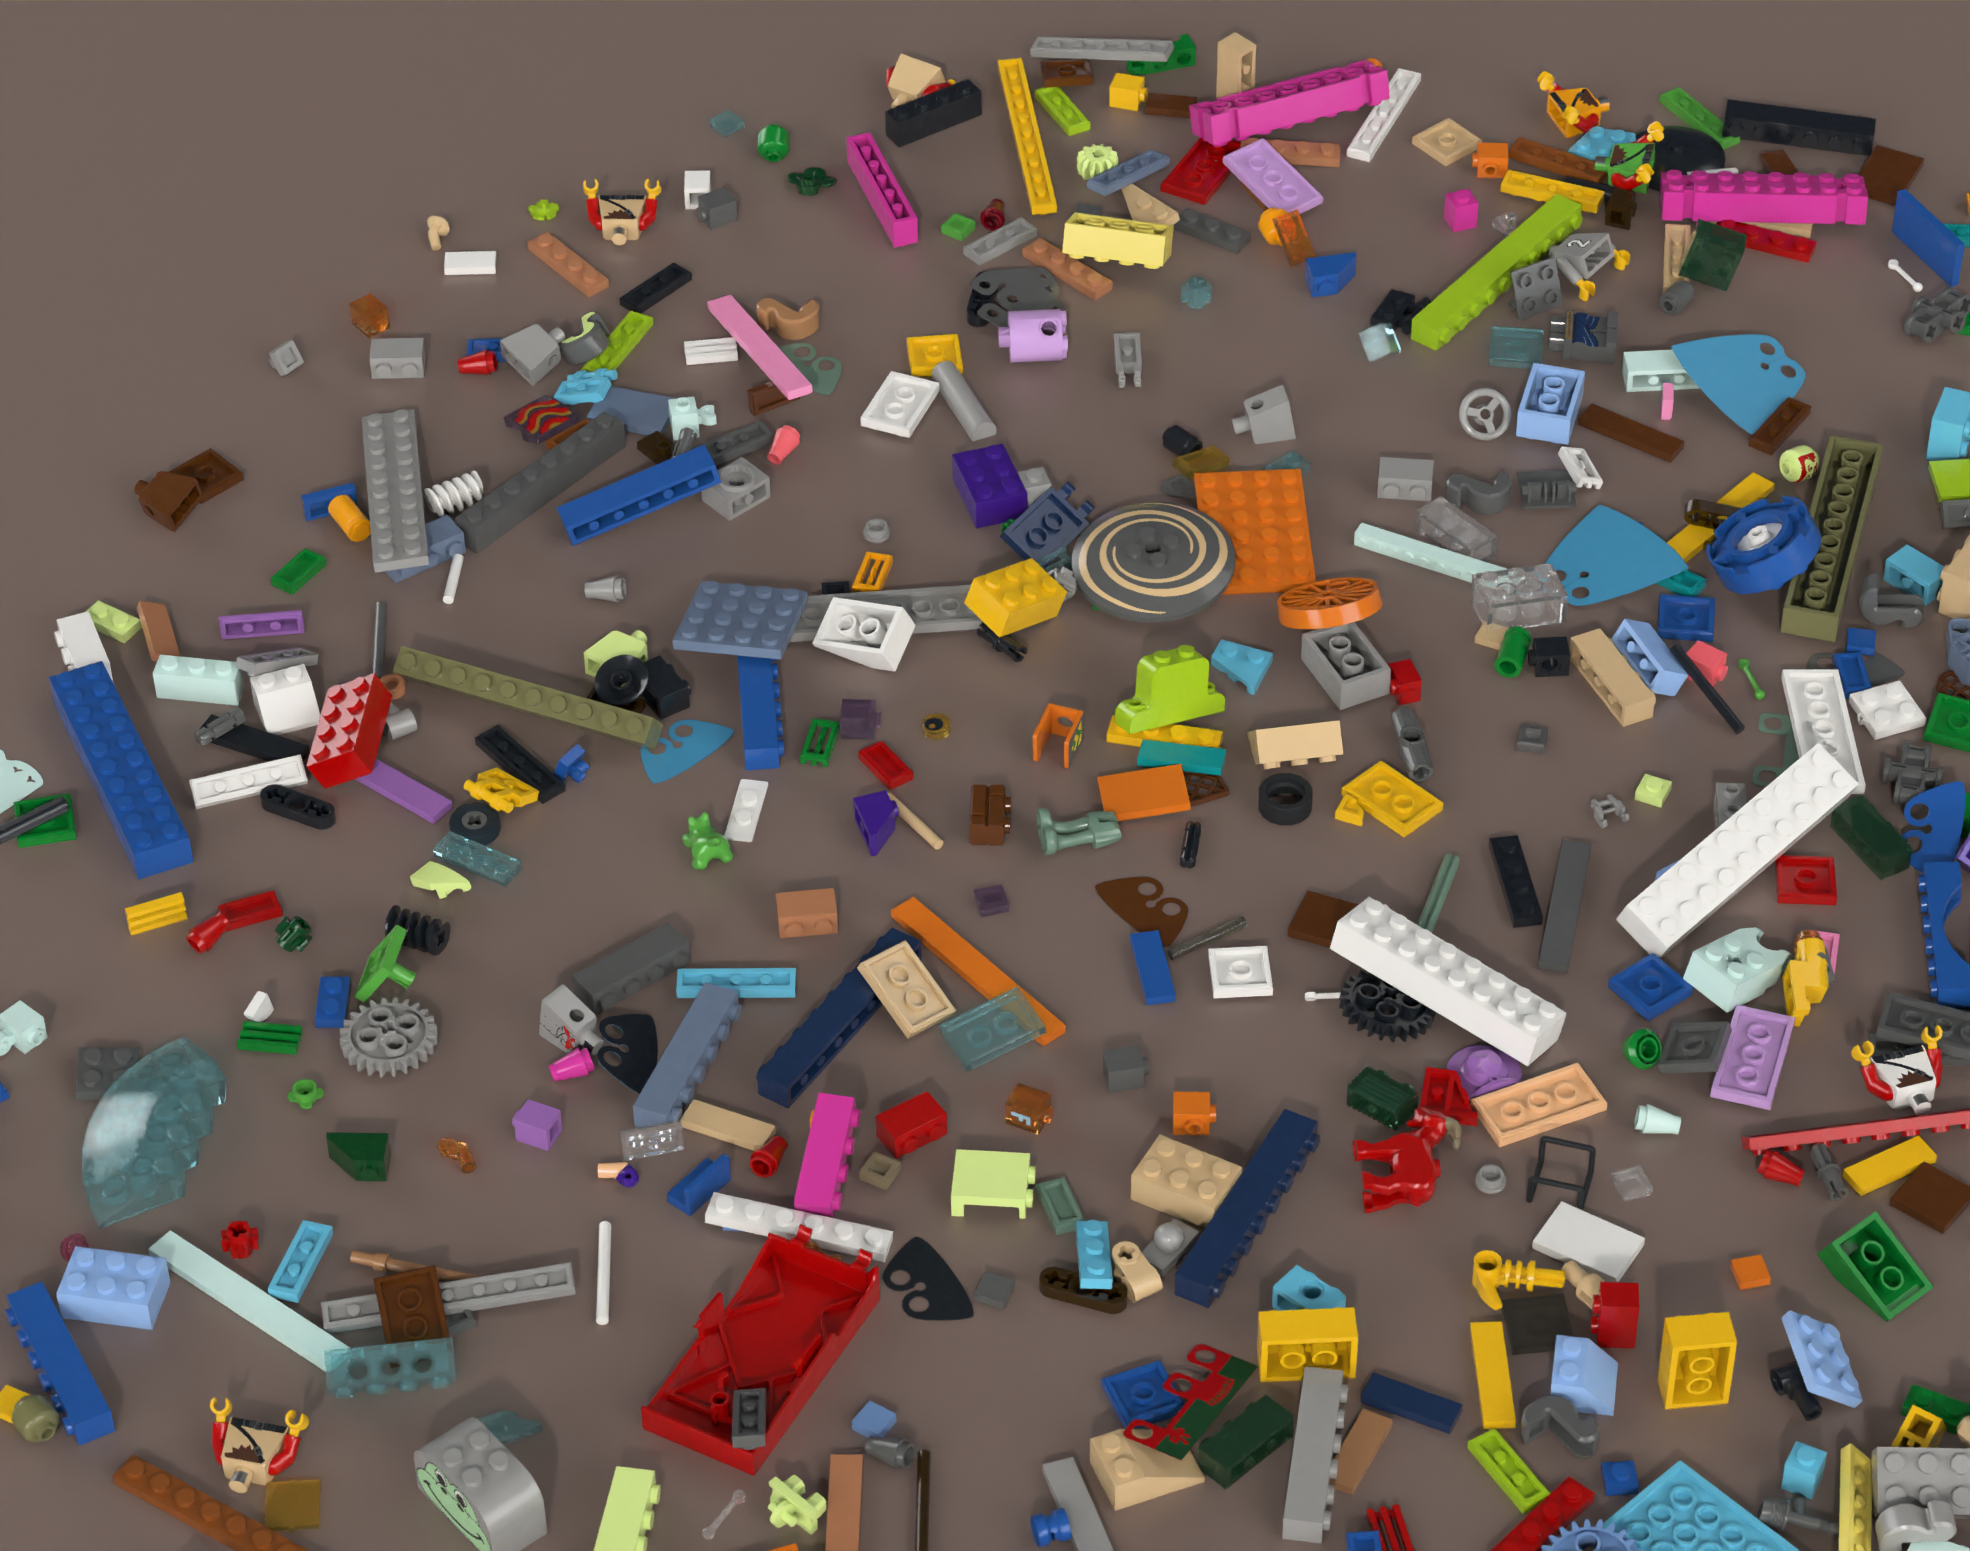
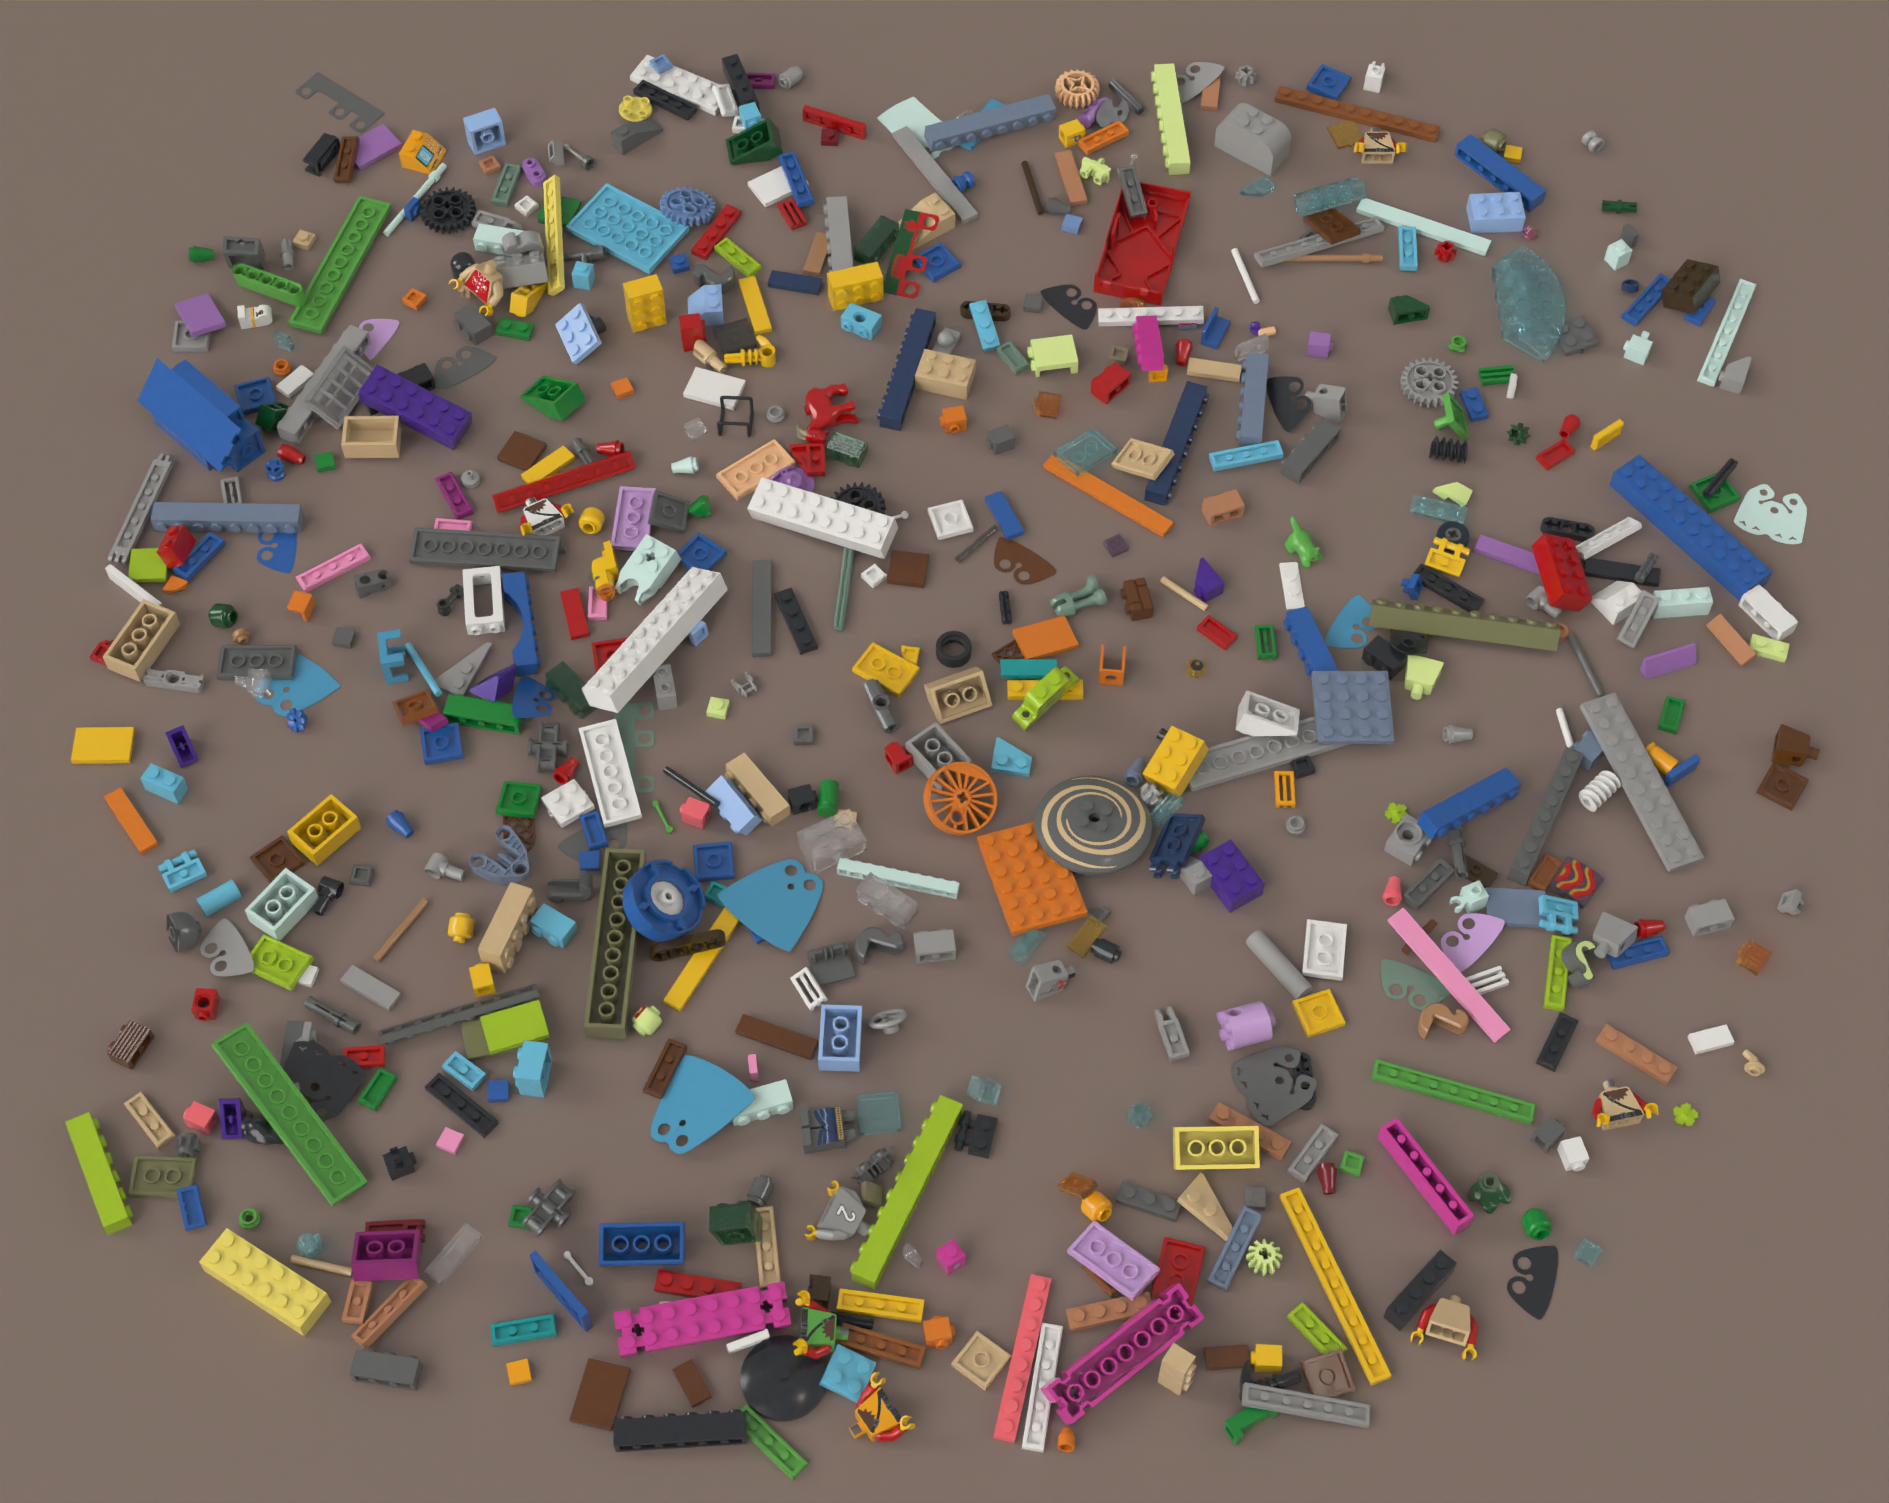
camera: 165 degrees right, 15 degrees up
(457, 1151) = (1356, 327): clear orange arm -> none
(572, 1065) = (1312, 384): dark pink cone -> none
(718, 381) = (1481, 937): none -> lavender piece
(733, 529) = (1395, 812): none -> lime plant
(800, 106) = (1539, 1290): none -> black piece
(807, 266) = (1453, 1091): none -> bright green tile
(859, 719) = (1245, 657): clear purple brick -> none
(1072, 615) = (1135, 773): none -> sand blue cone
(1134, 1271) = (960, 321): tan piece -> none
(1154, 72) = (1277, 1381): none -> black piece
(1329, 273) = (1041, 1158): blue slope -> none
(1398, 138) = (1022, 1358): none -> coral plate
(1822, 1060) = (591, 520): none -> yellow head
(1827, 265) = (642, 1244): none -> blue brick
(1860, 945) = (574, 614): none -> red tile
(1888, 742) = (565, 771): none -> red cone

